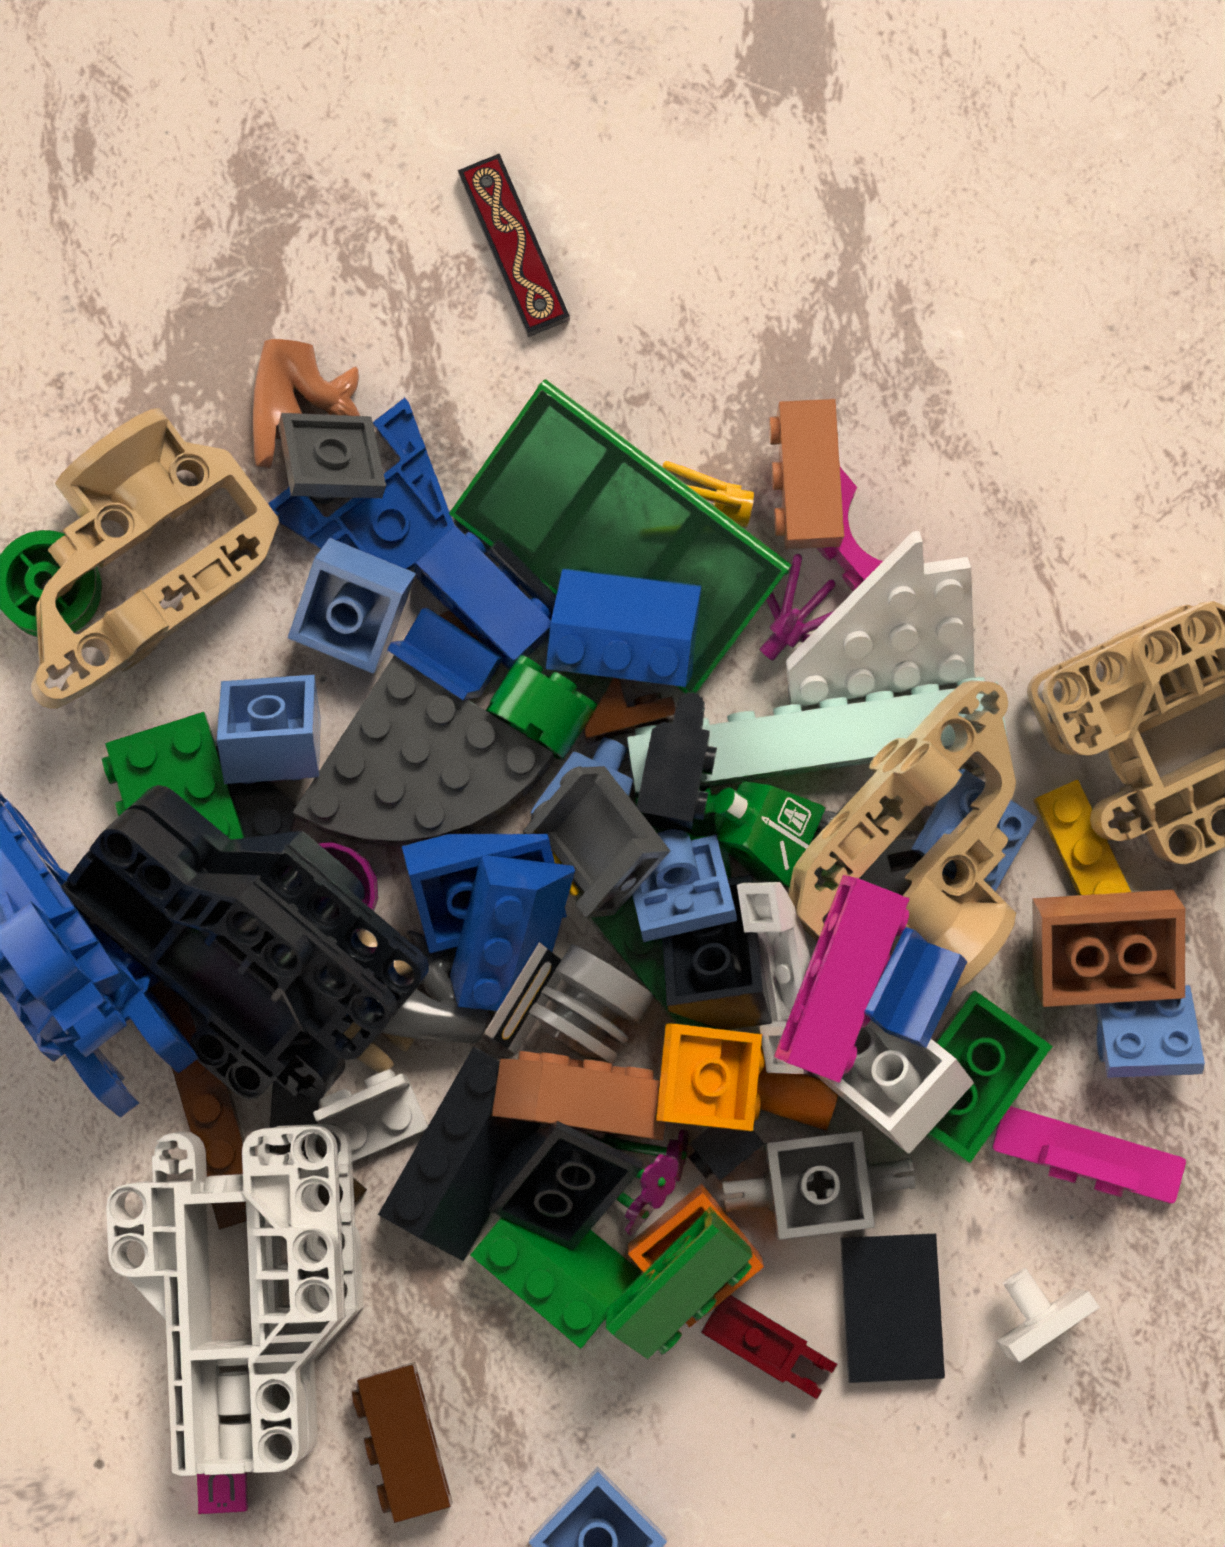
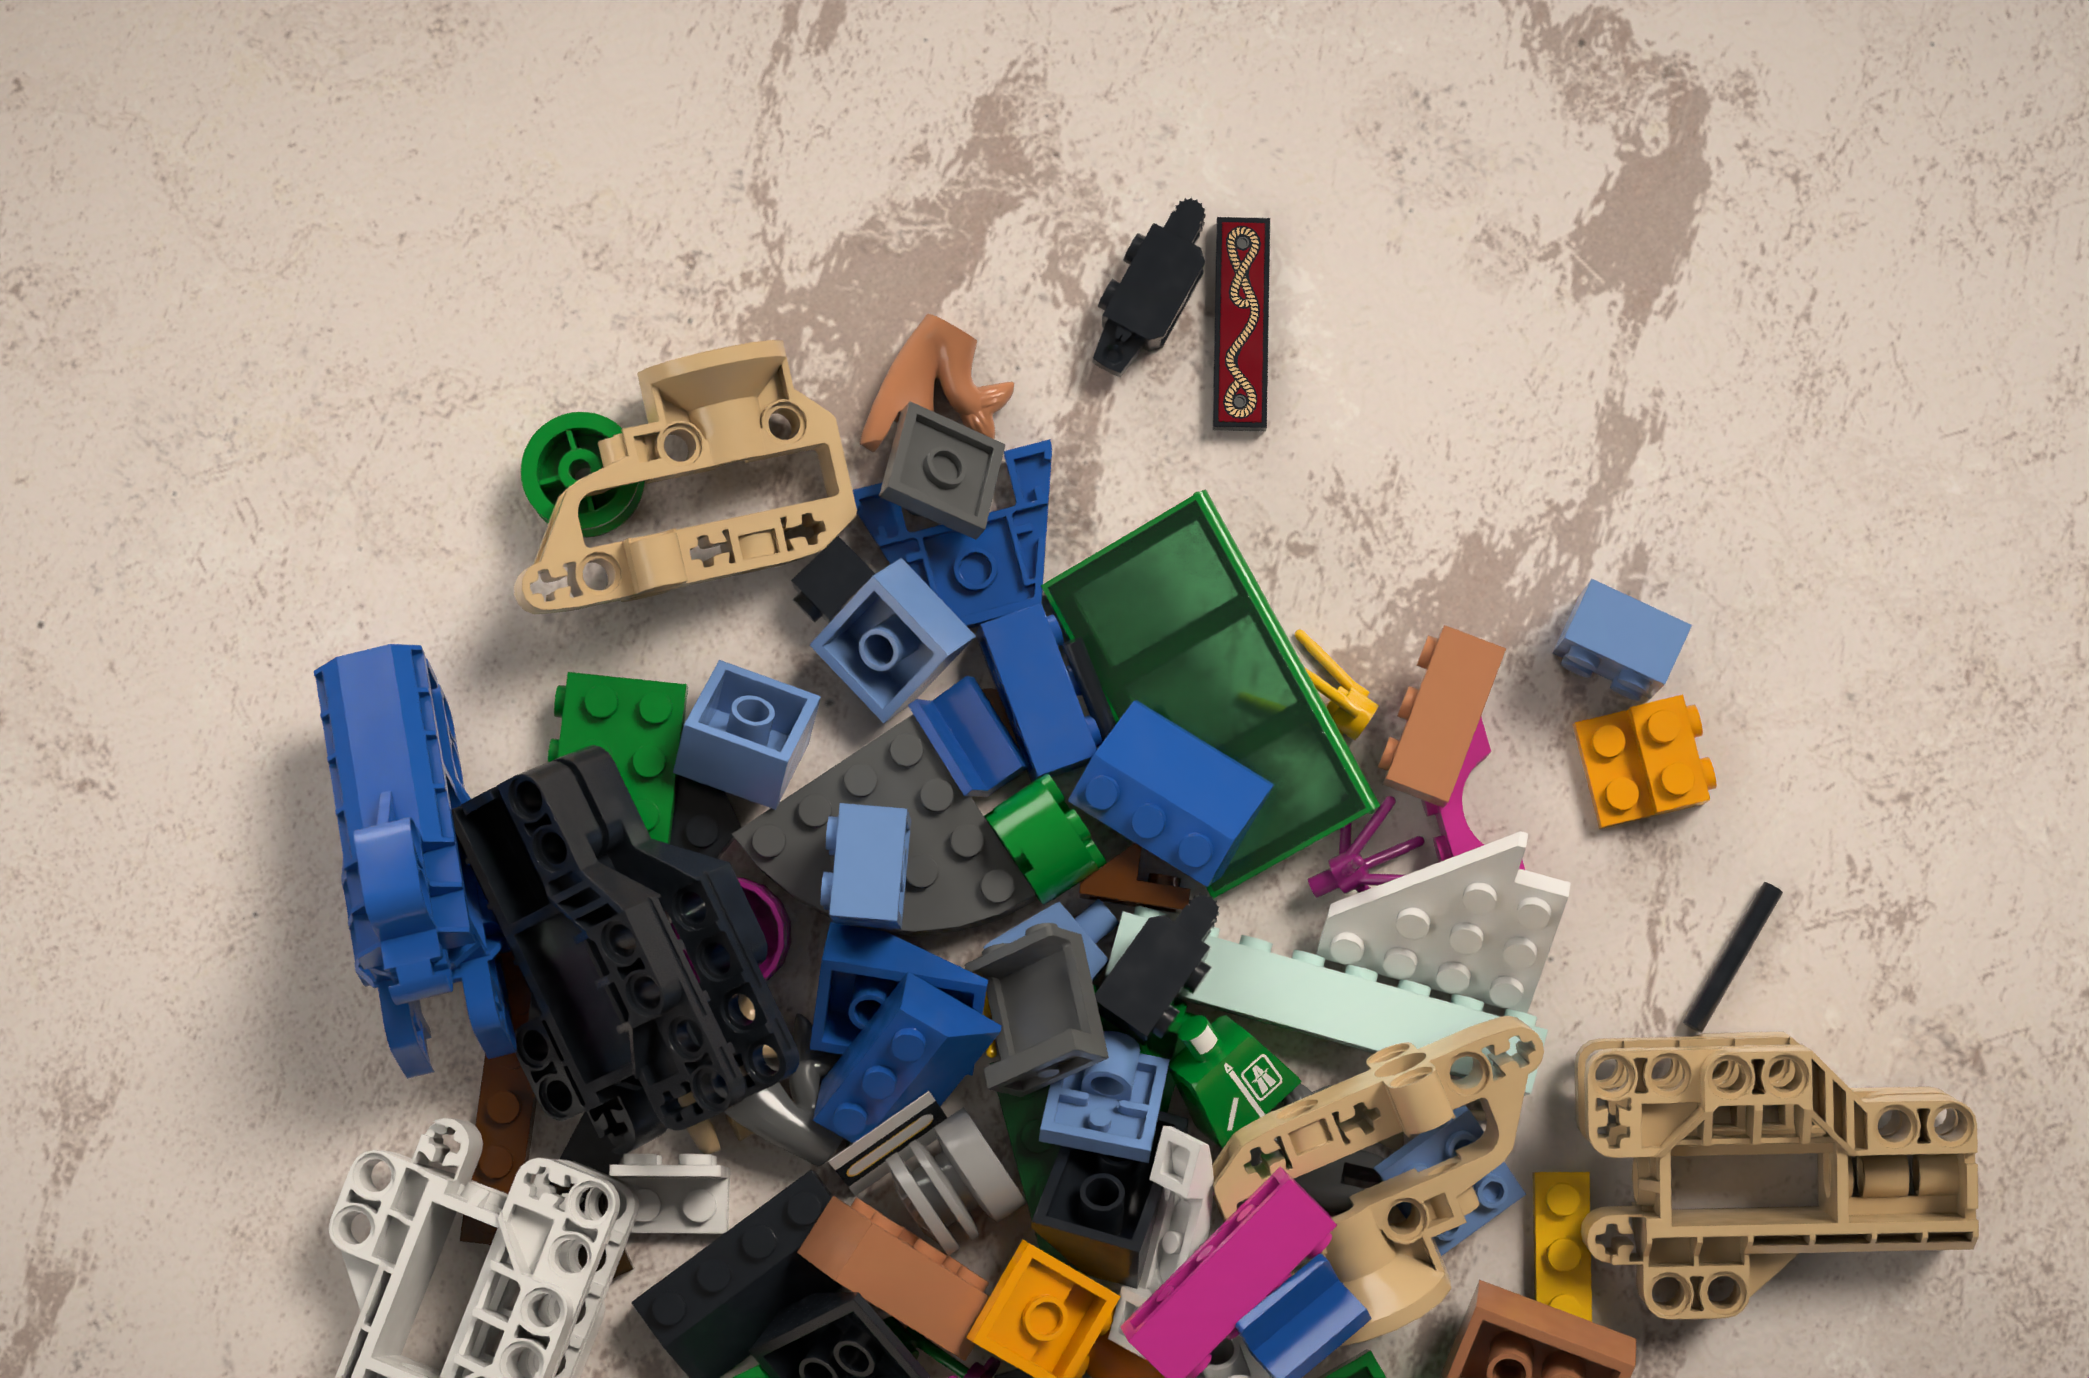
camera: 30 degrees right, 0 degrees up
(281, 582) = (830, 581): none -> black brick
(414, 785) = (868, 866): none -> medium blue brick
(433, 246) = (1154, 289): none -> black hinge
(919, 358) = (1621, 641): none -> medium blue brick
(977, 445) = (1644, 761): none -> light orange plate
(1112, 566) = (1733, 957): none -> black bar

